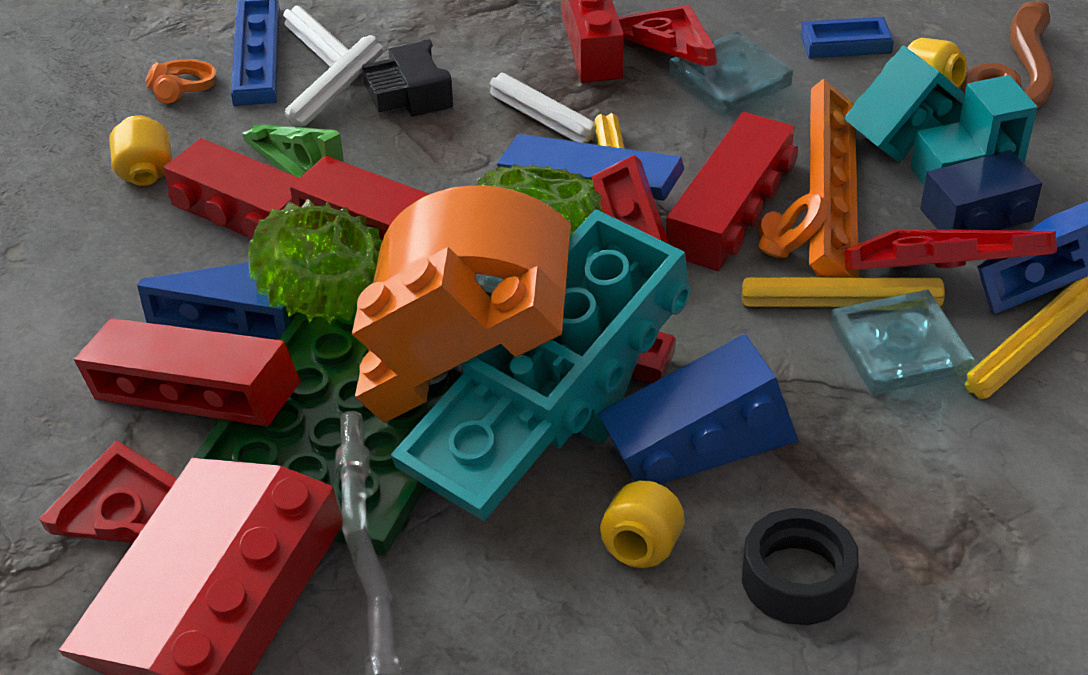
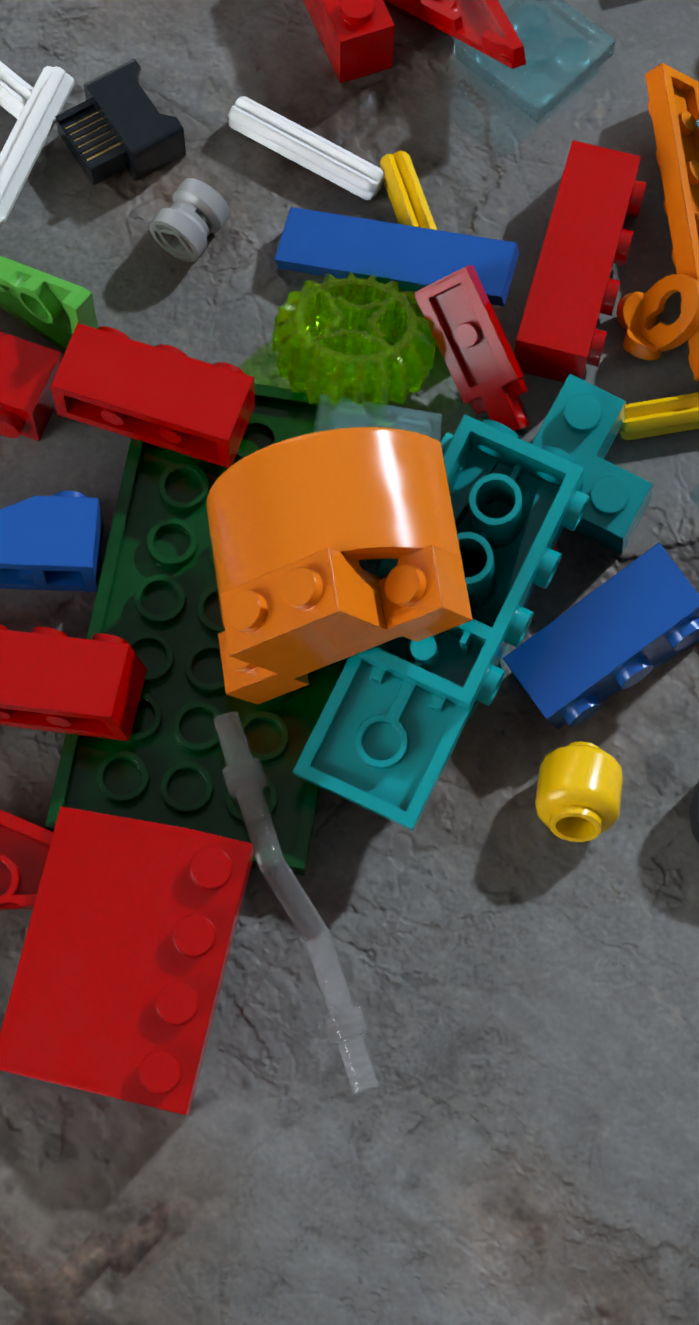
camera: 15 degrees left, 25 degrees up
(314, 259) = (139, 454): clear neon green gear -> none
(436, 134) = (190, 219): none -> light grey wheel
(712, 311) = (584, 426): none -> teal brick

